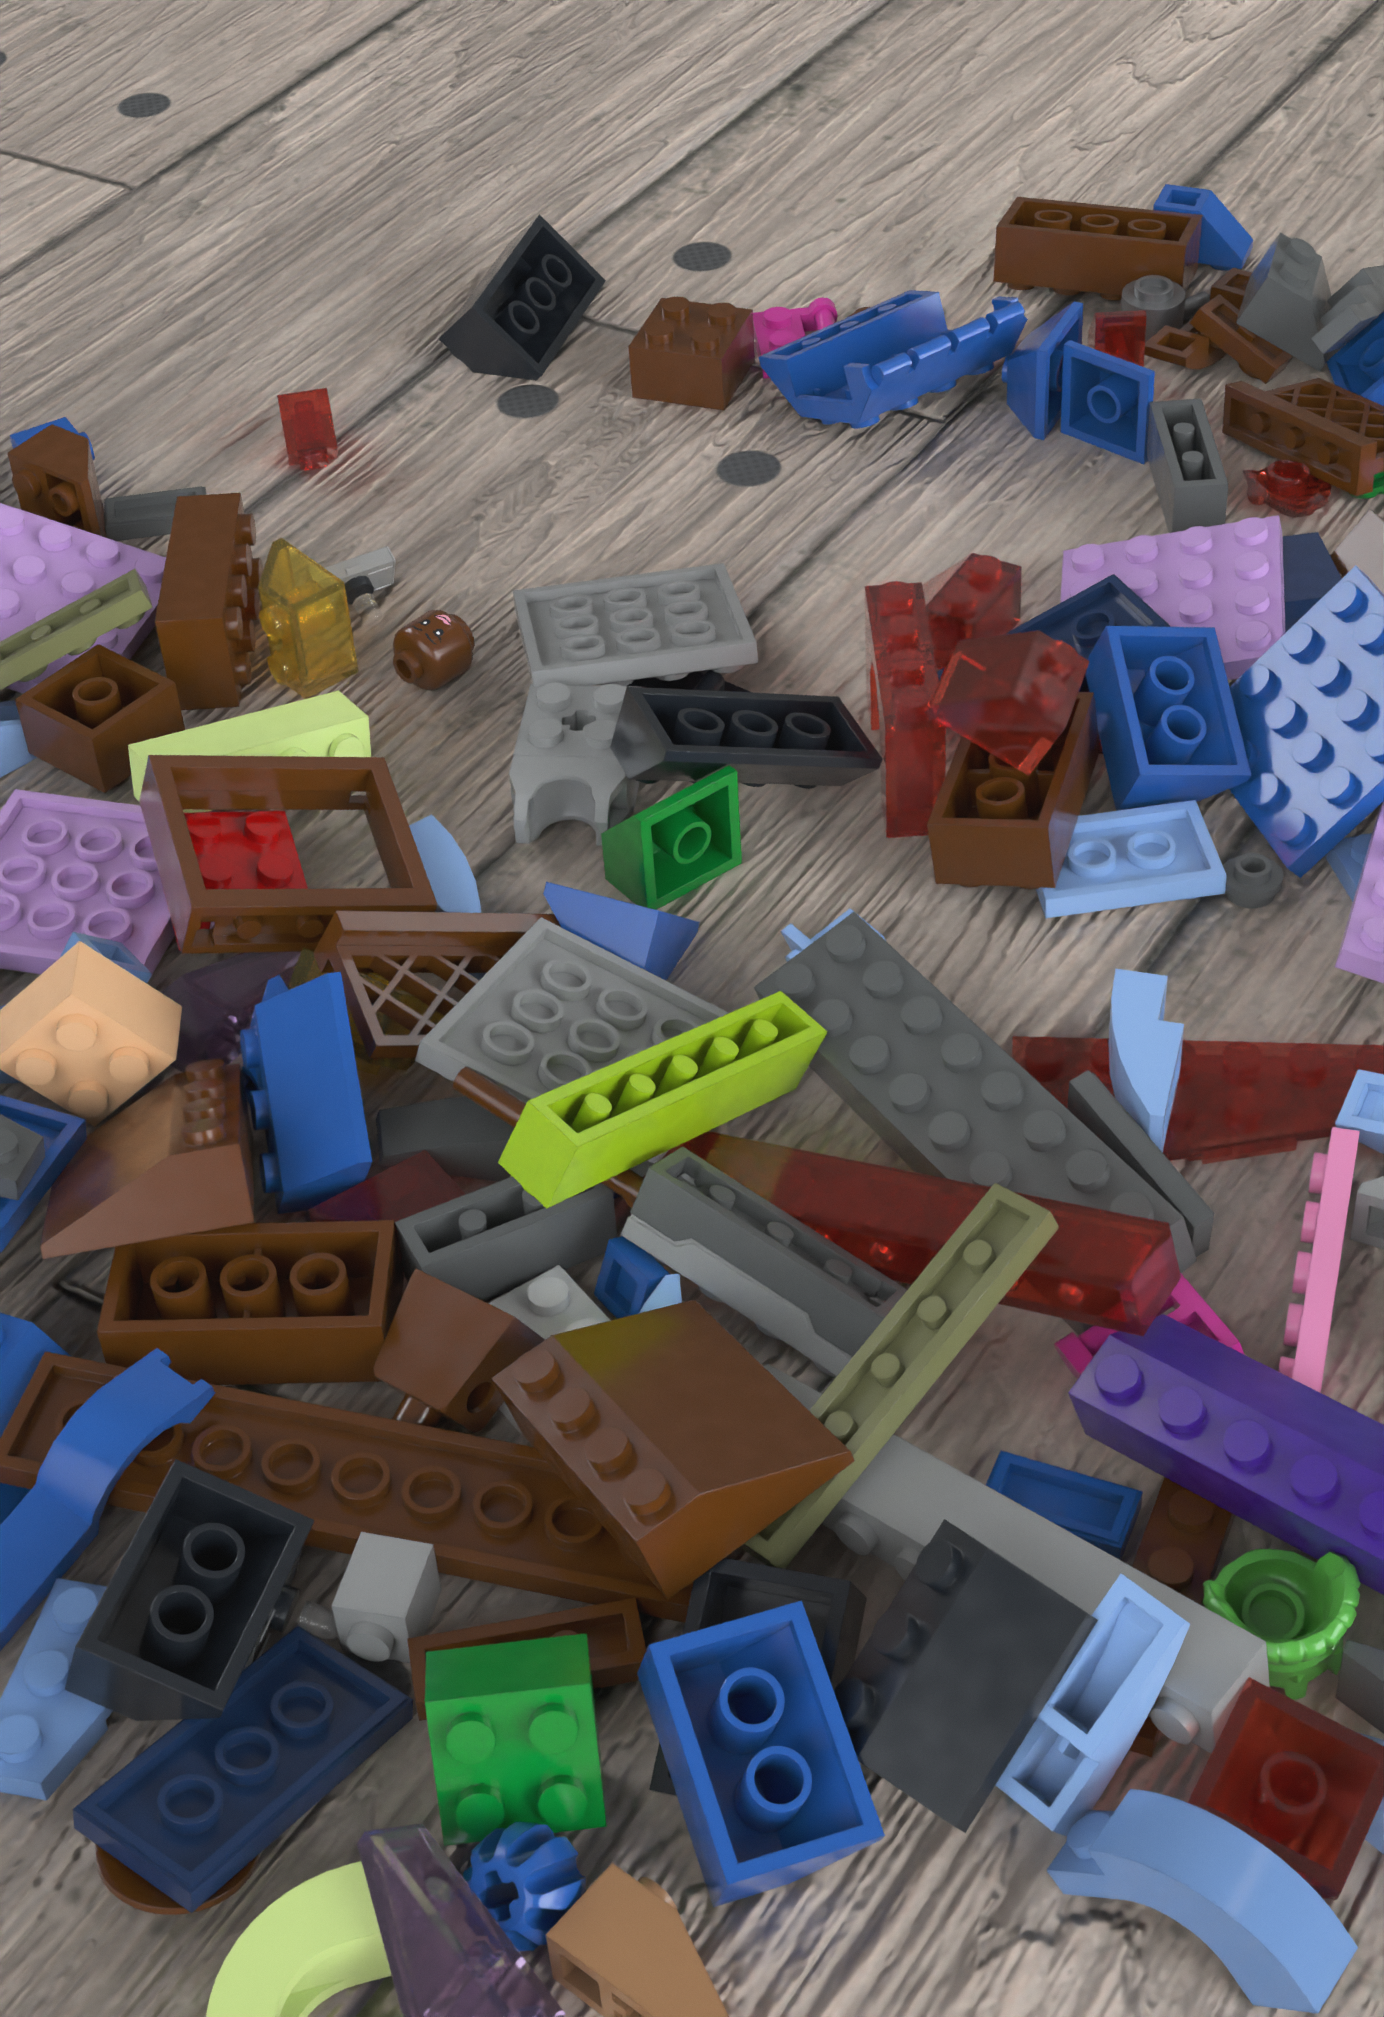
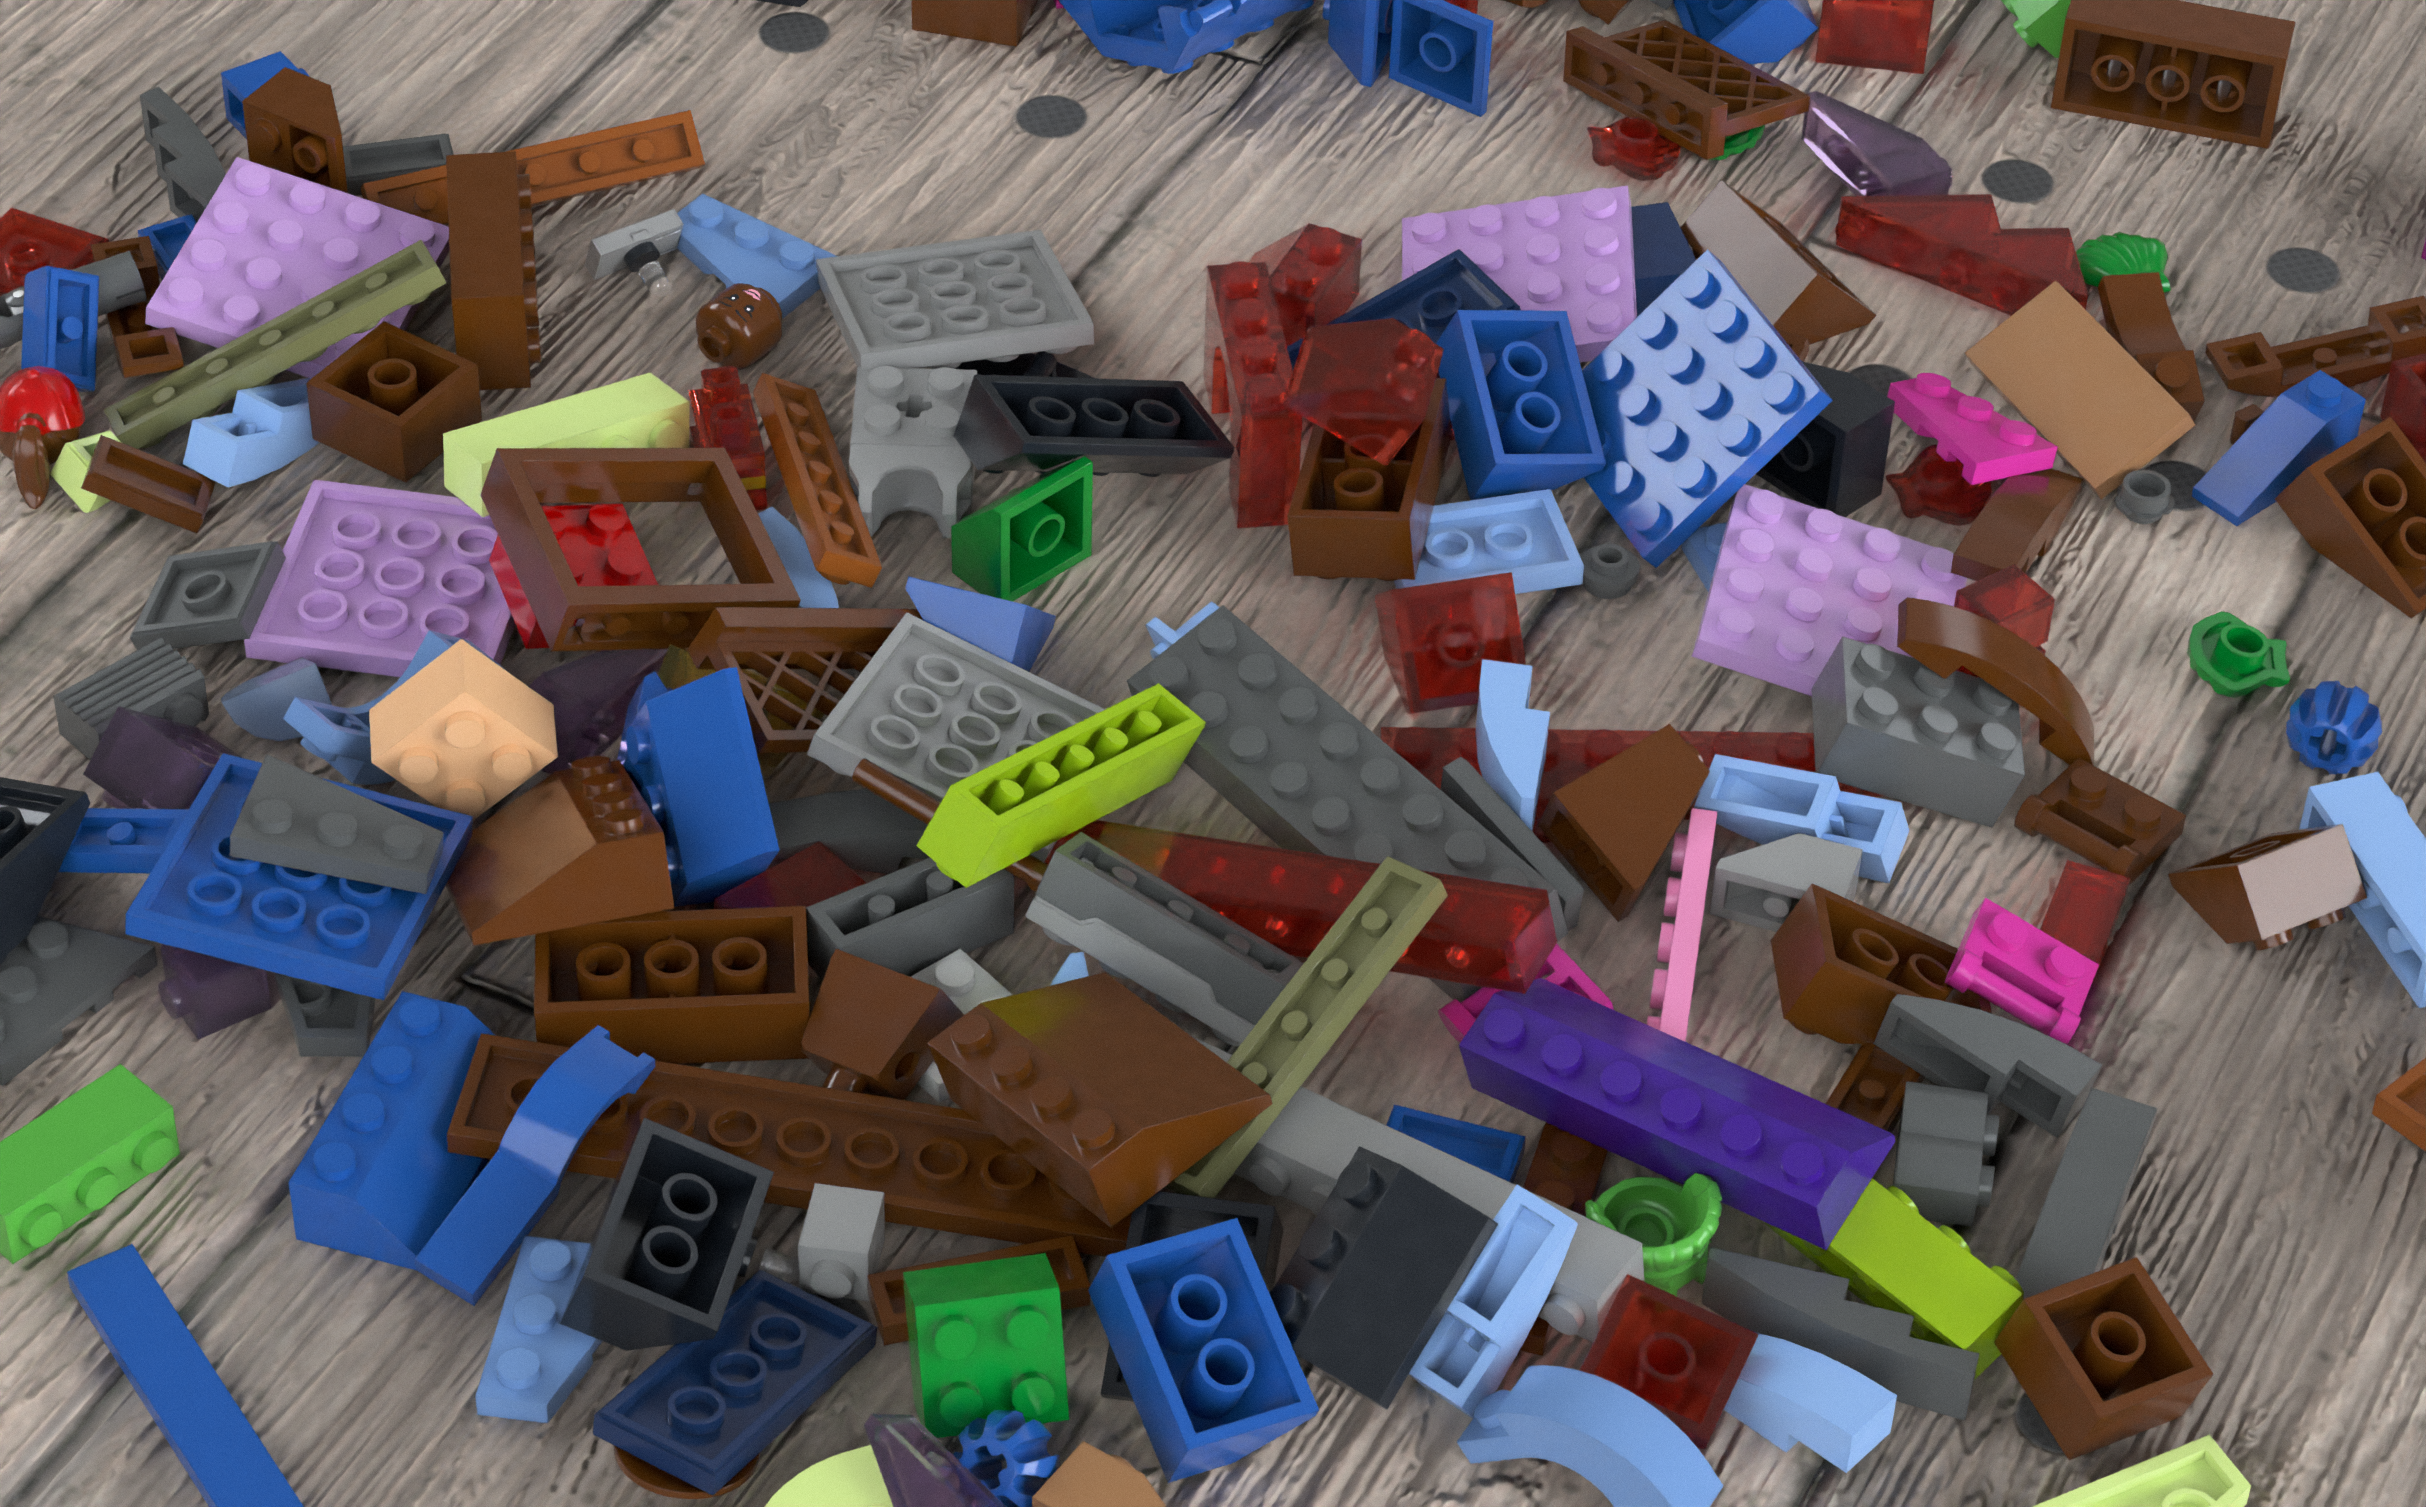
camera: 10 degrees left, 0 degrees up
(305, 622) = (602, 295): clear yellow slope -> none
(308, 428) = (557, 68): clear red slope -> none
(309, 510) = (564, 166): none -> dark orange plate
(403, 738) = (728, 421): none -> clear red hips
(458, 585) = (749, 252): none -> medium blue wing
(479, 794) = (817, 482): none -> dark orange plate
(627, 1277) = (1030, 957): blue plate -> none
(1078, 940) = (1442, 633): none -> clear red slope
(1186, 465) = (1527, 125): dark grey brick -> none
(1261, 1134) = (1625, 815): none -> reddish brown slope

